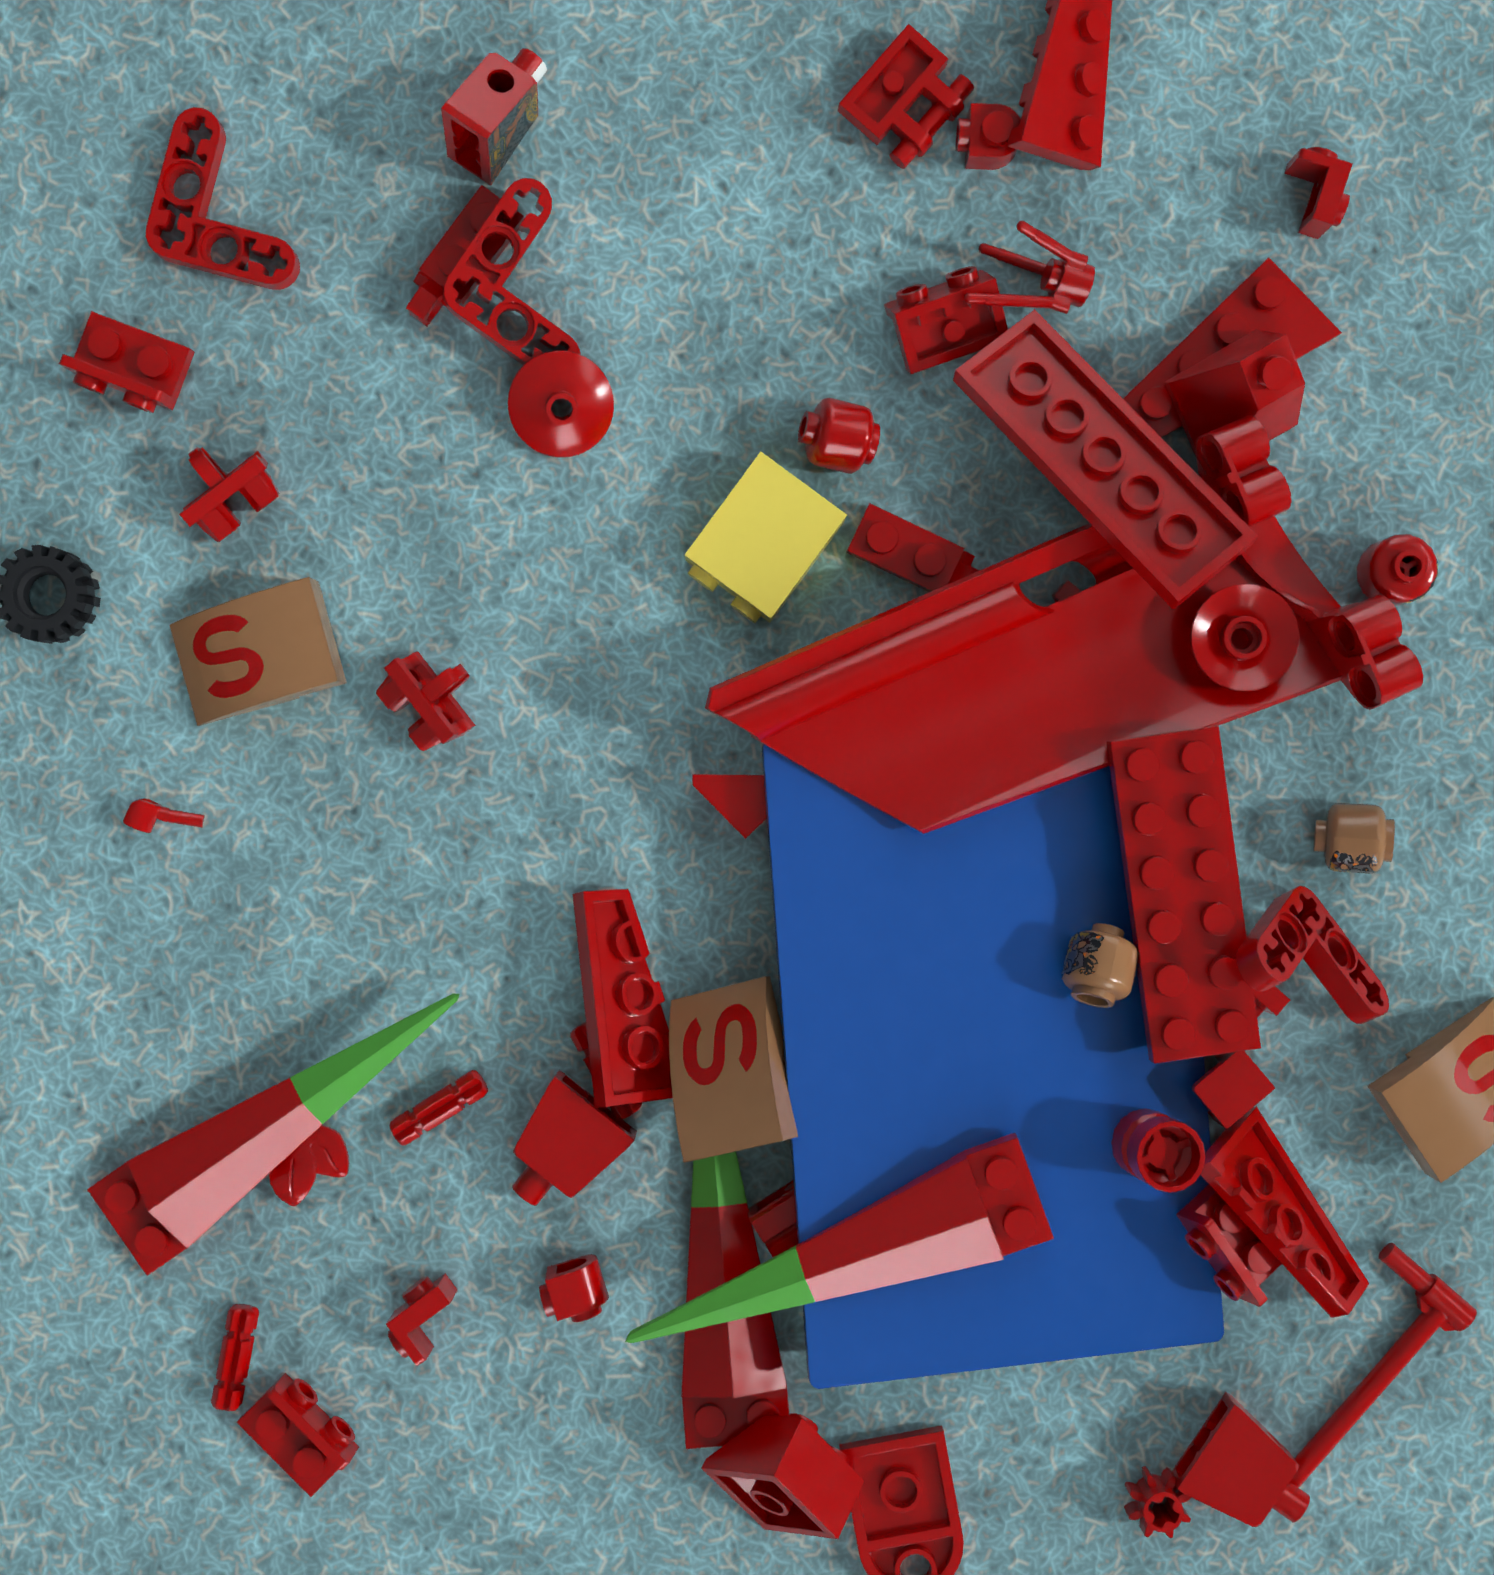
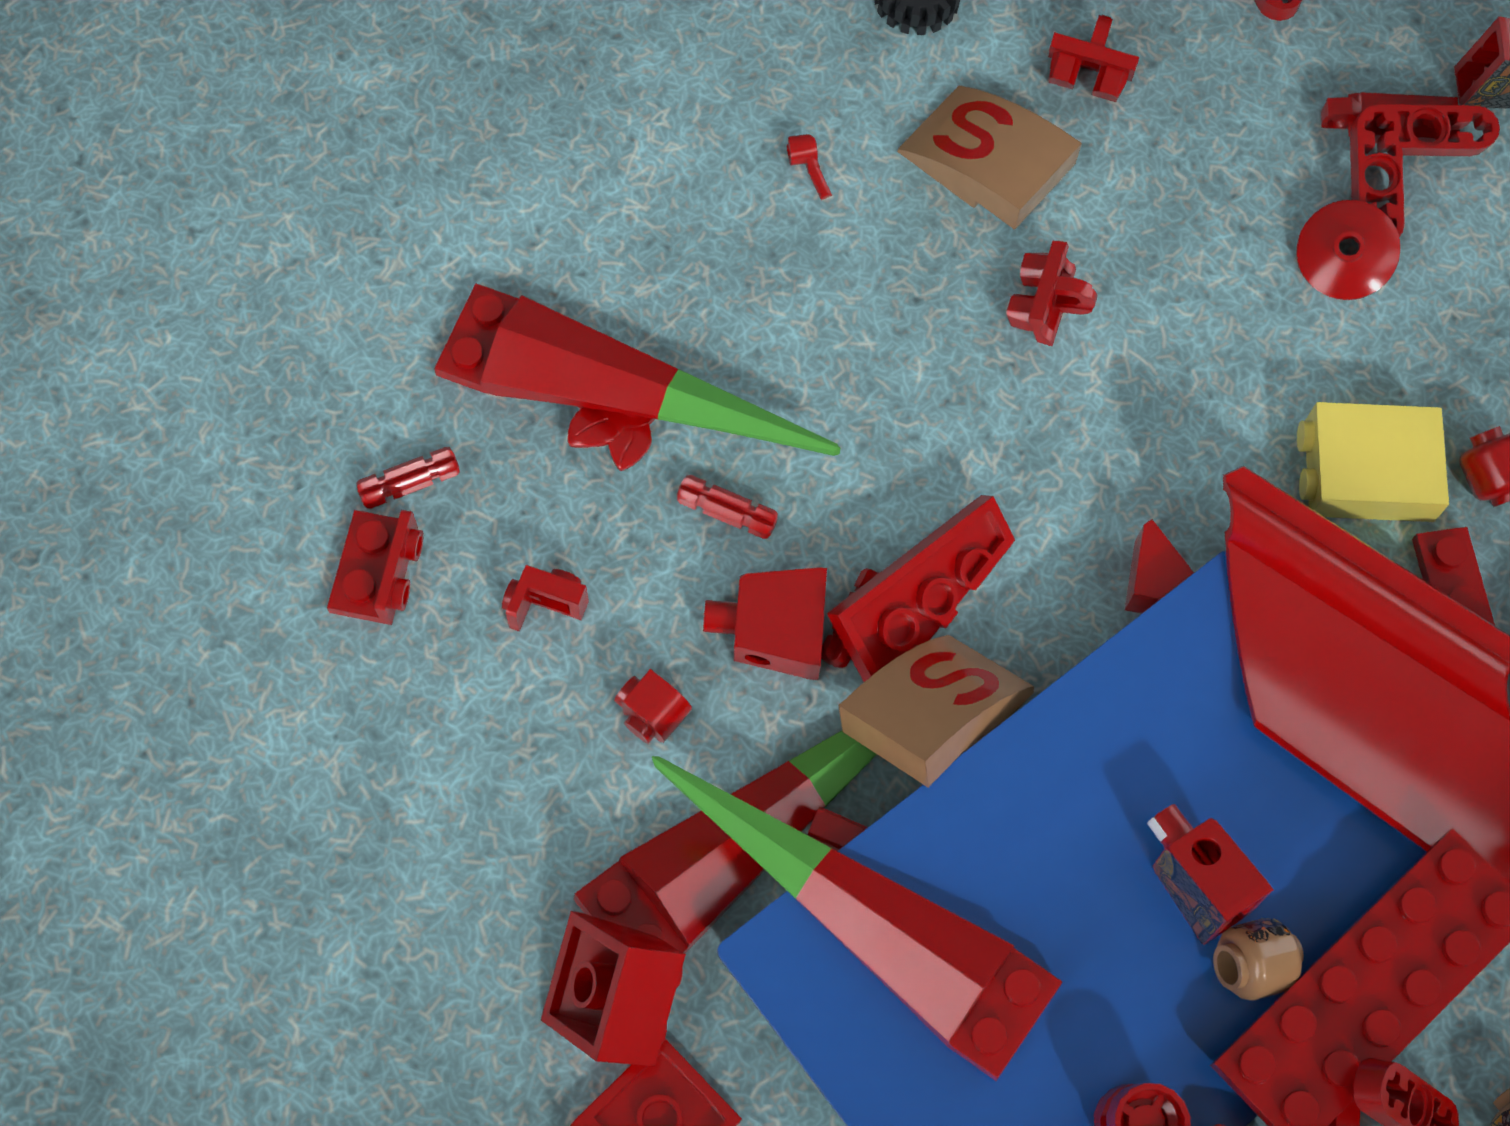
camera: 55 degrees right, 20 degrees down
(1037, 970) = (1206, 873): none -> red torso

